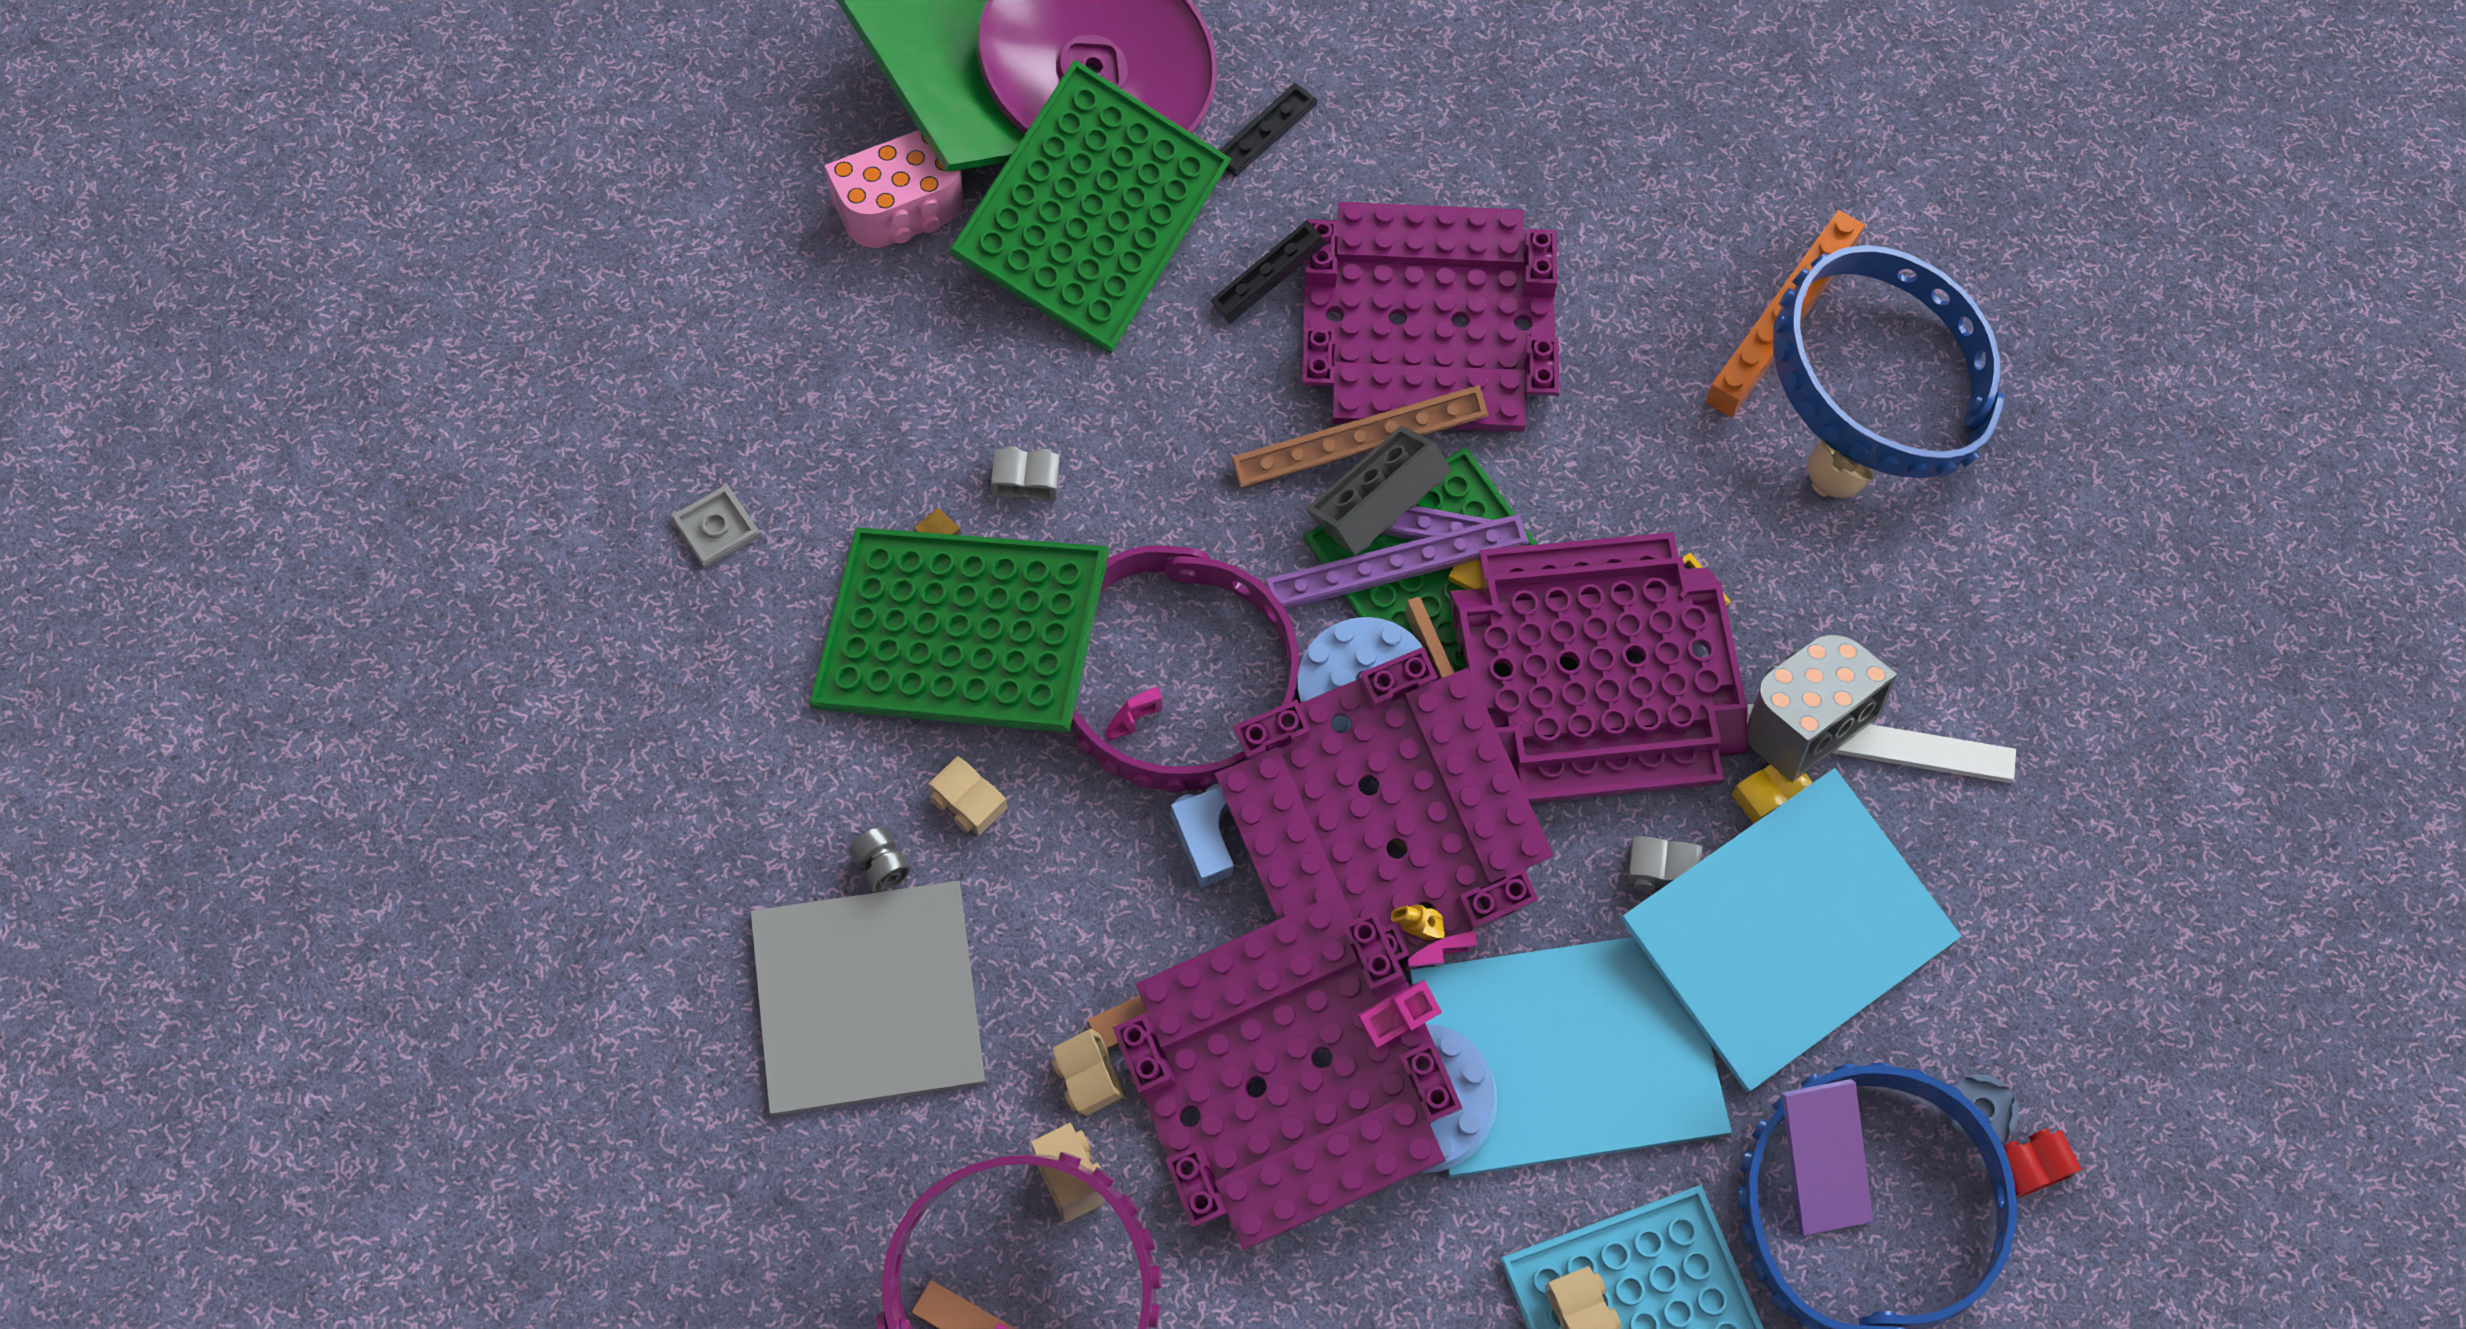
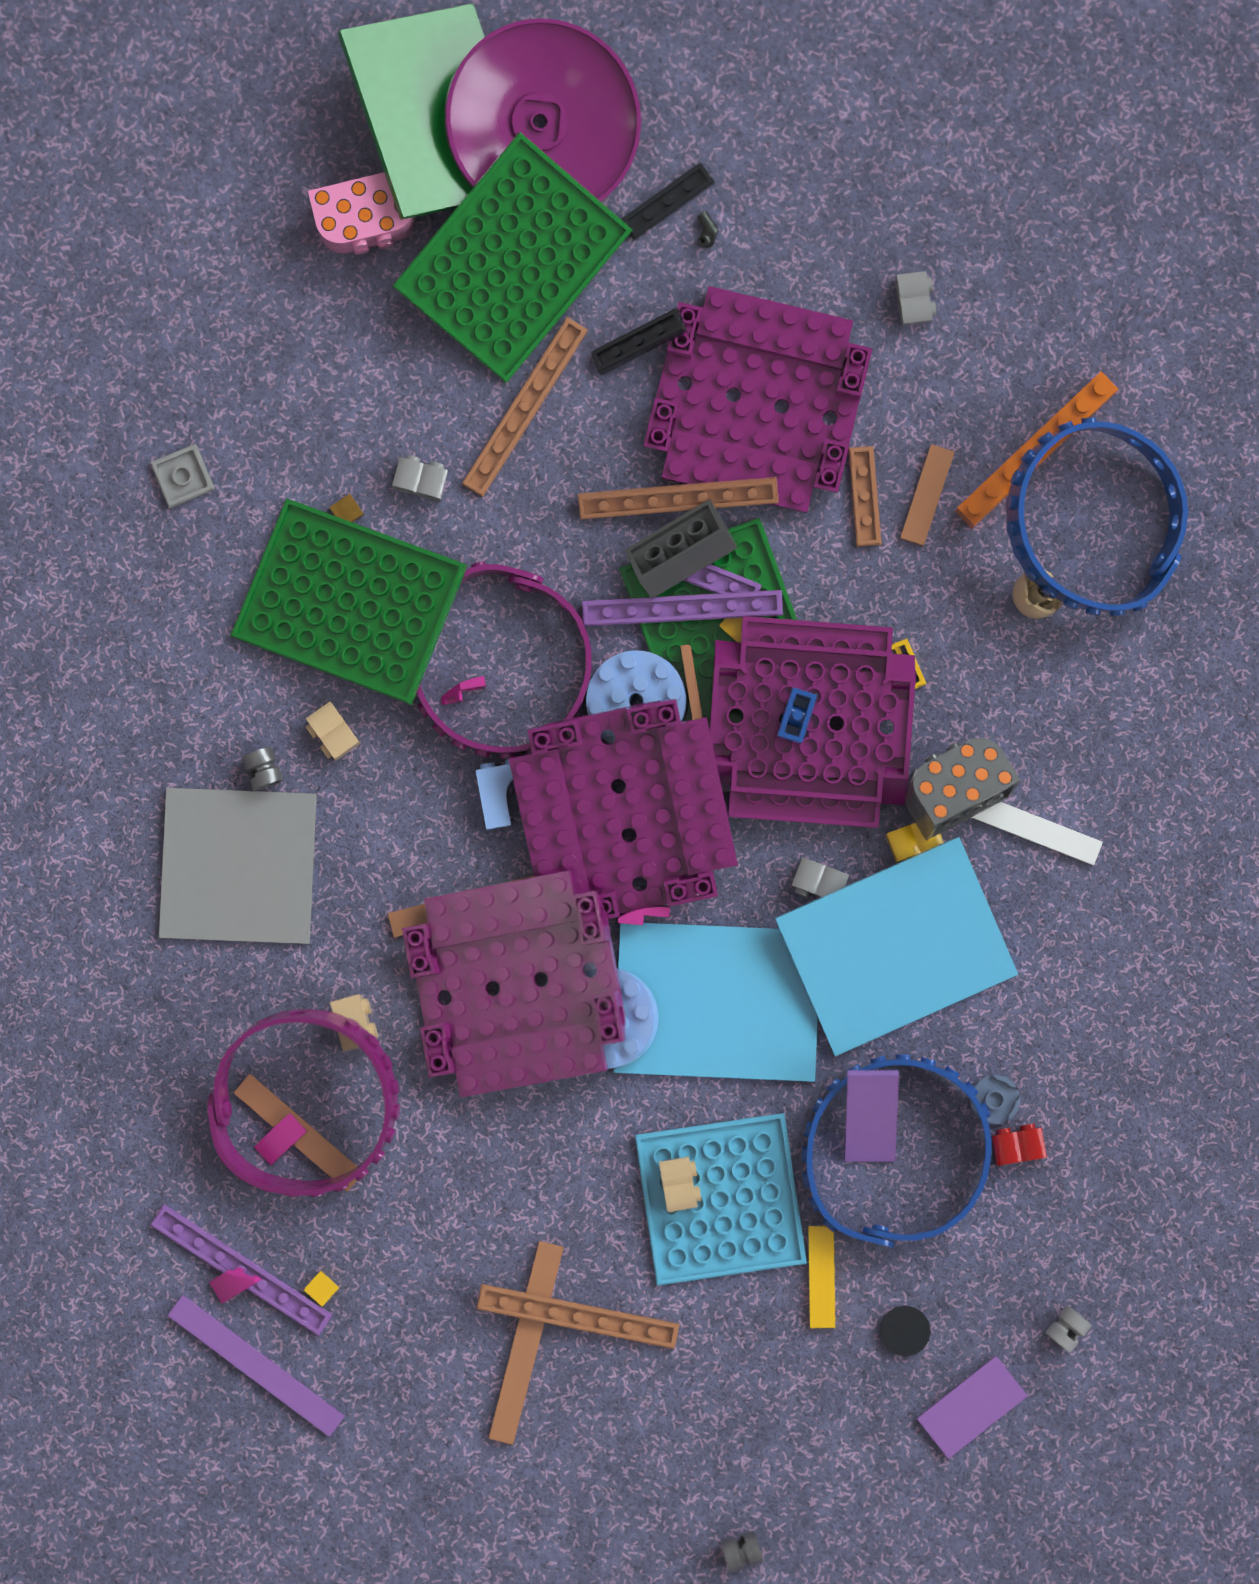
camera: 15 degrees right, 20 degrees up
(1087, 1072) = (380, 953): tan brick -> none
(1140, 377) = (524, 407): none -> nougat tile
(1323, 150) = (709, 230): none -> pearl dark grey arm
(1399, 1013) = (596, 965): dark pink slope -> none
(1419, 921) = (628, 892): yellow piece -> none
(1585, 645) = (796, 715): none -> blue brick
(1589, 179) = (914, 298): none -> light grey brick
(1590, 404) = (864, 496): none -> nougat tile
(1666, 388) = (927, 495): none -> nougat tile

